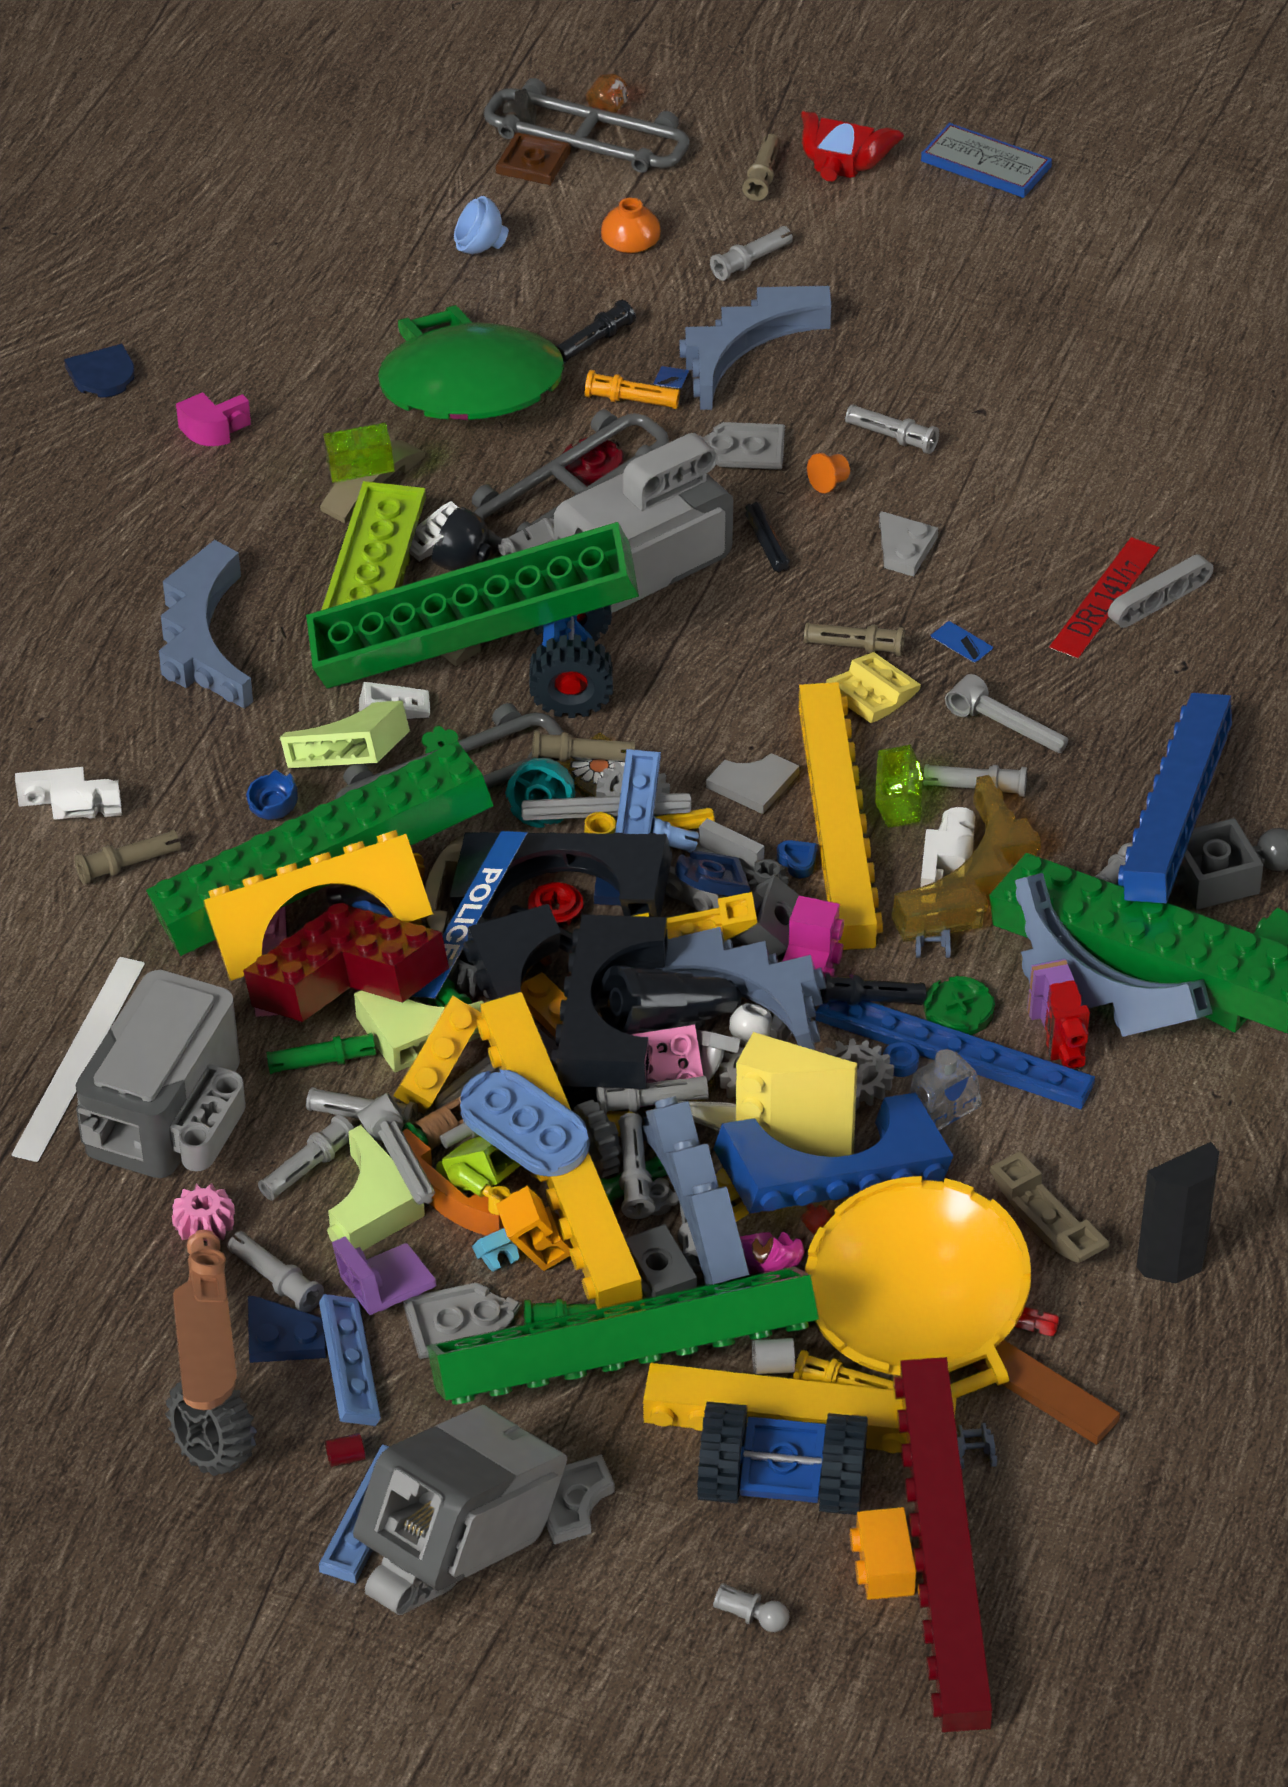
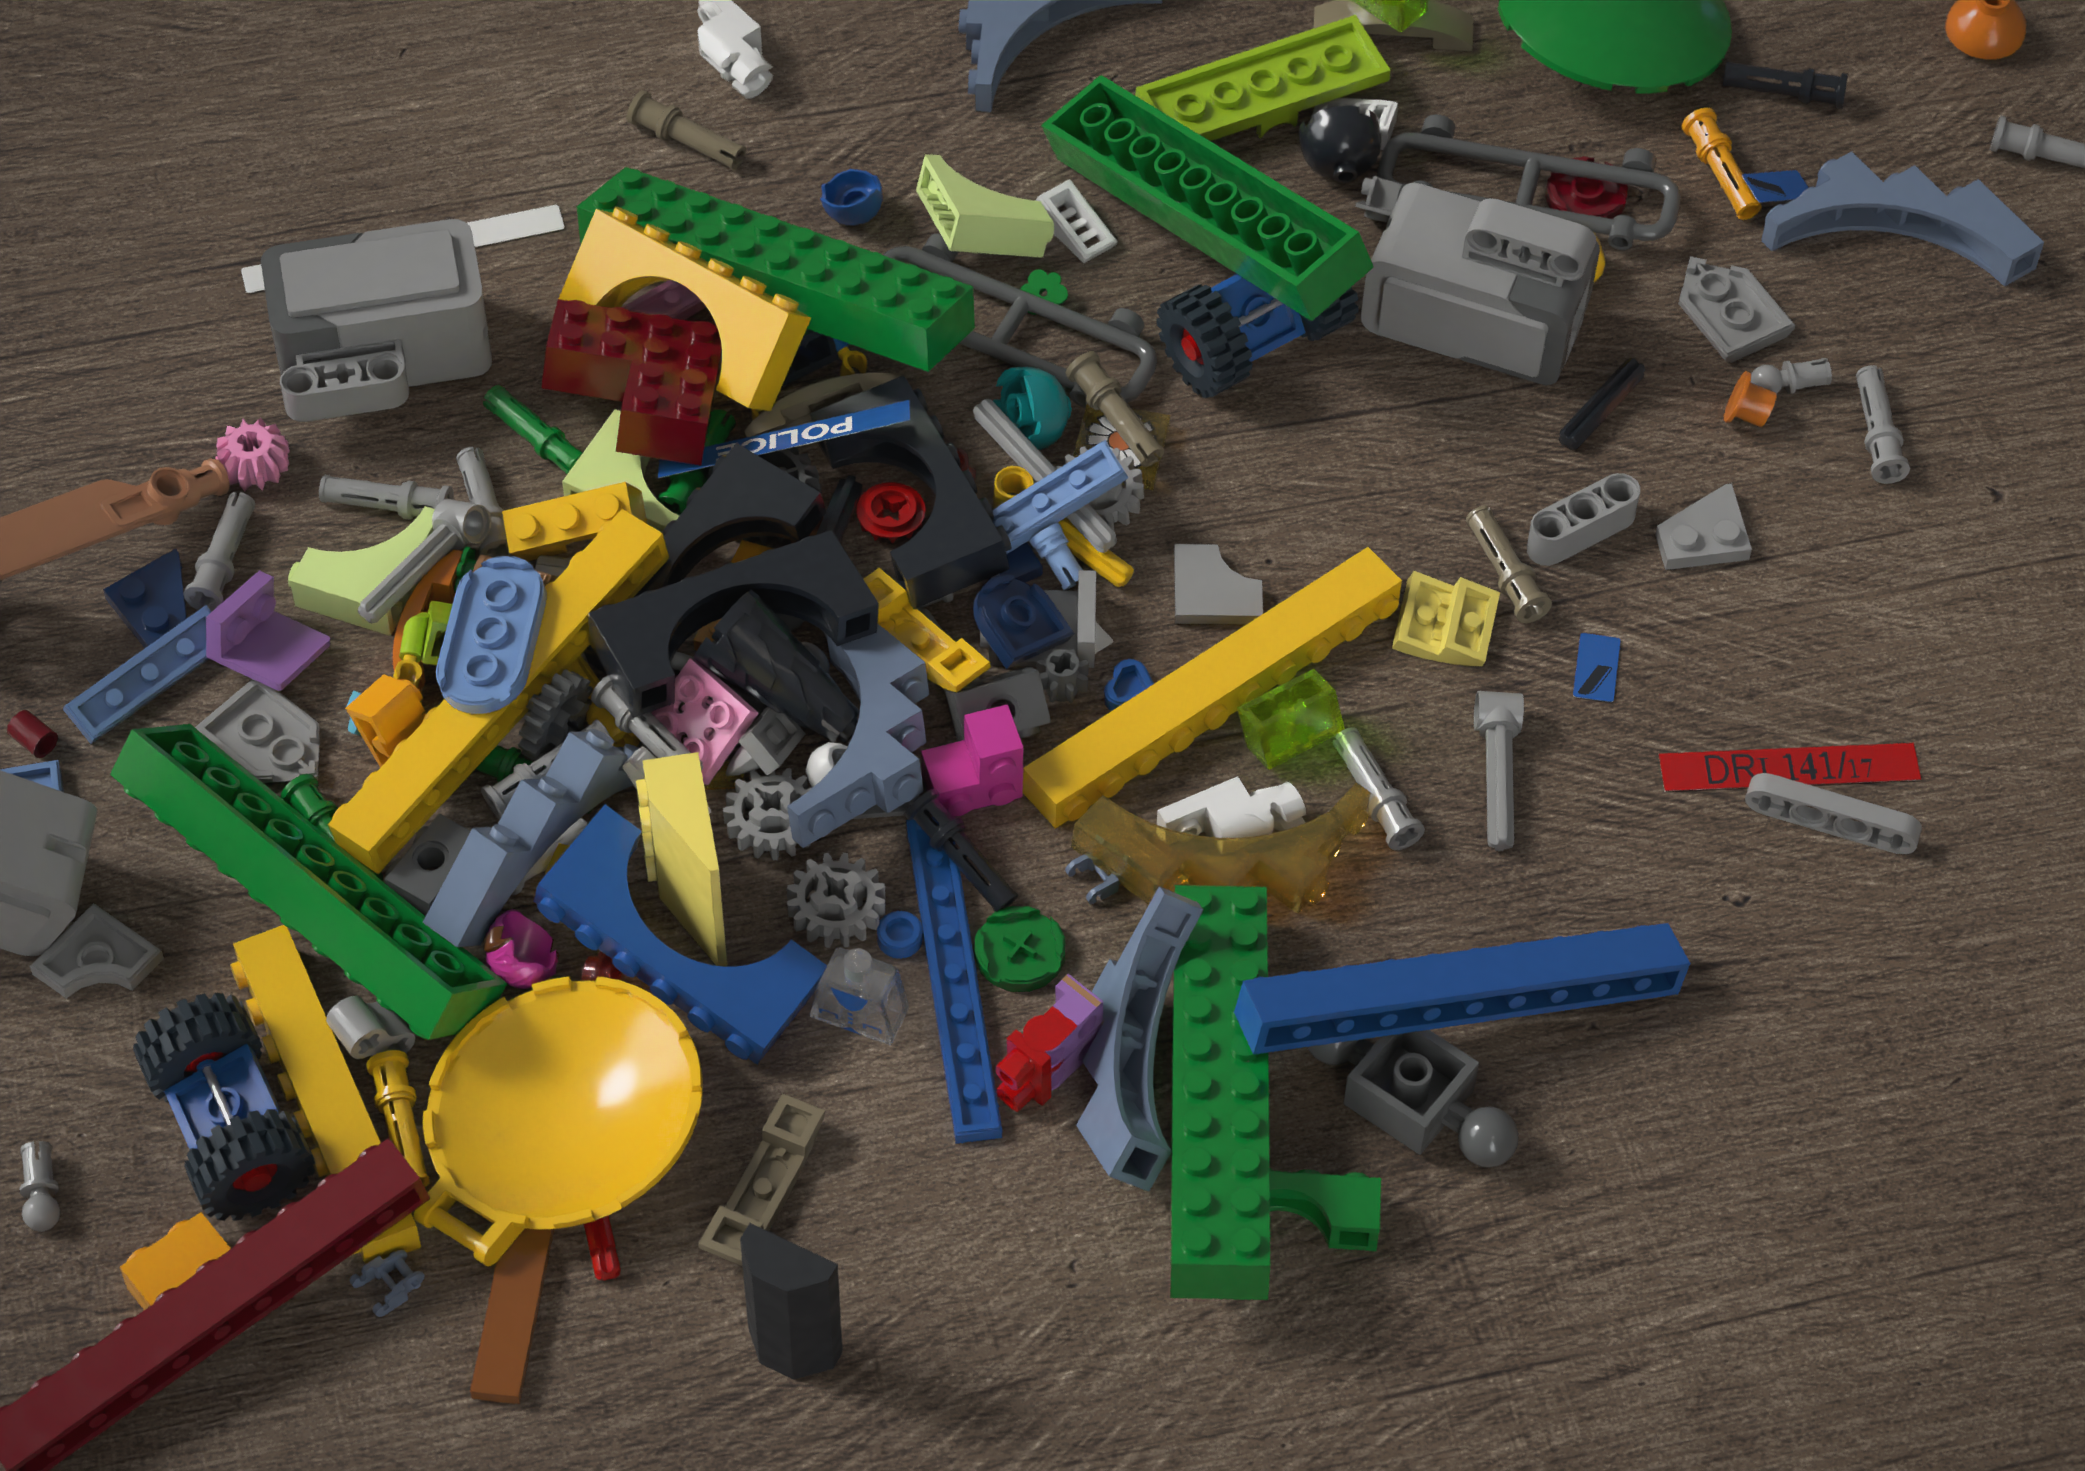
camera: 55 degrees right, 10 degrees up
(825, 441) = (1793, 375): none -> light grey pin
(853, 585) = (1583, 519): none -> light grey beam

